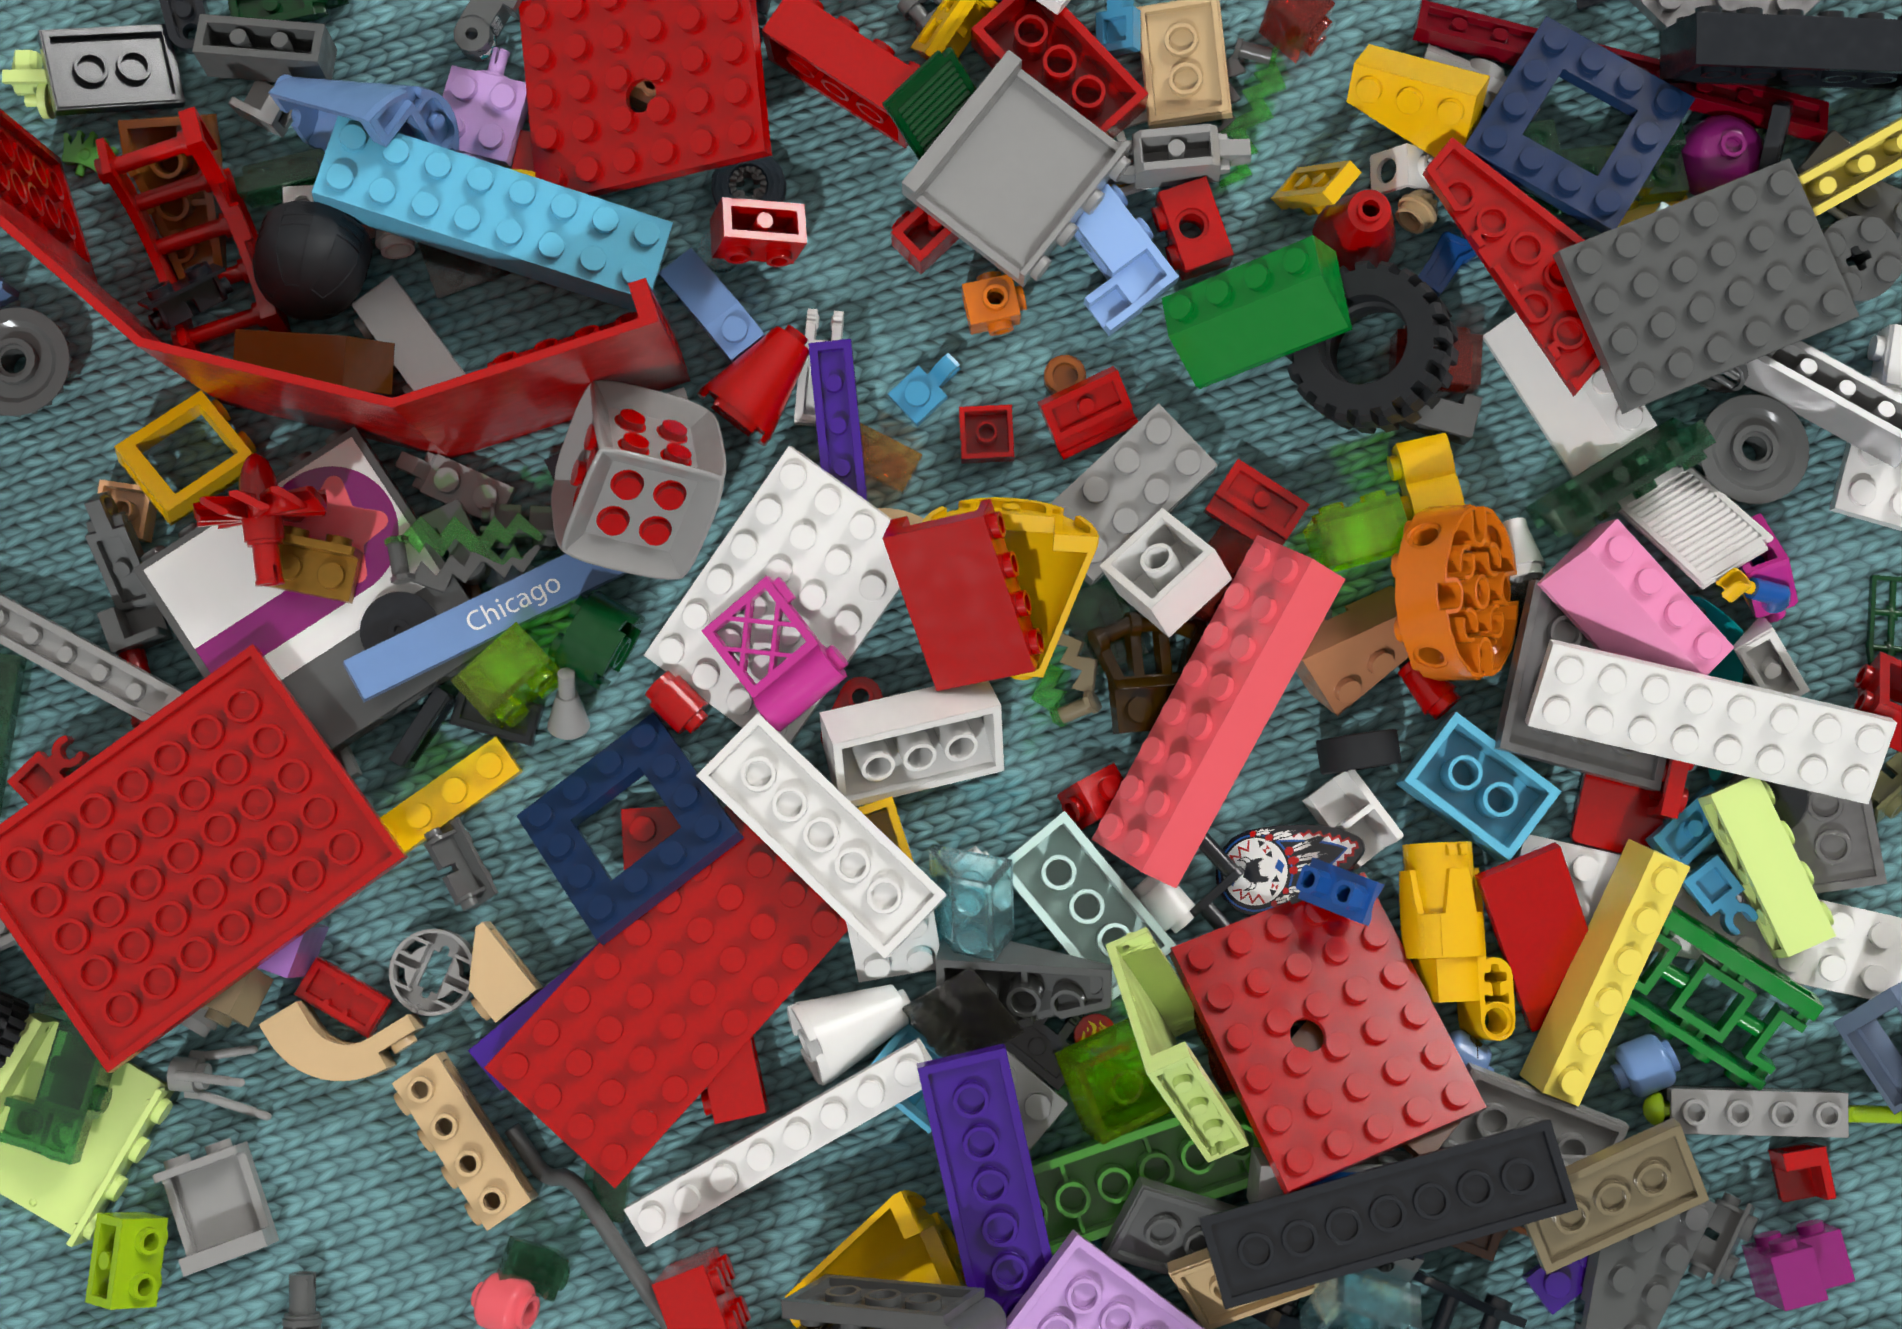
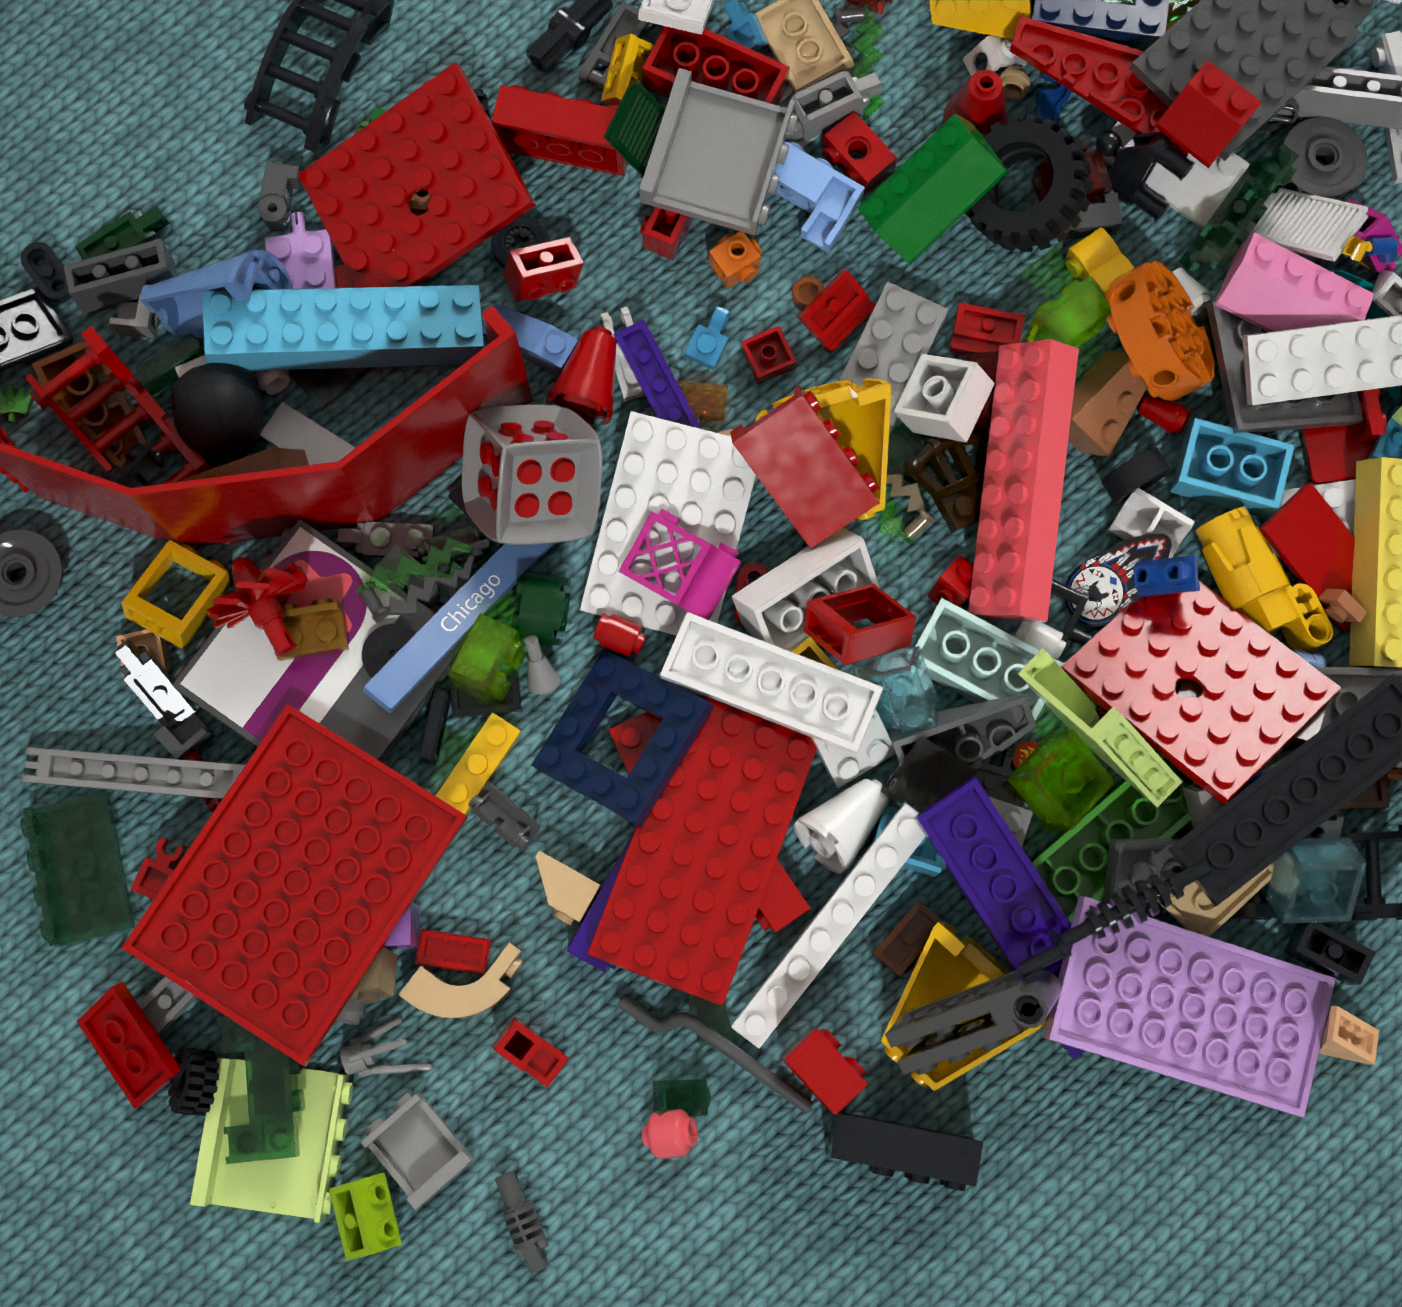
camera: 25 degrees left, 5 degrees down
(379, 1141) = (529, 1052): none -> red brick
(415, 964) = (498, 906): light grey piece -> none
(463, 1140) = (589, 1022): tan brick -> none
(867, 1188) = (907, 938): none -> reddish brown plate
(927, 830) = (830, 618): none -> red window
(1091, 1272) = (1120, 910): none -> black piece
(1316, 186) = (932, 91): yellow hinge -> none
(1517, 373) = (1135, 164): none -> black connector
(1536, 1005) = (1342, 606): none -> nougat plate
(1619, 353) = (1208, 114): none -> red slope

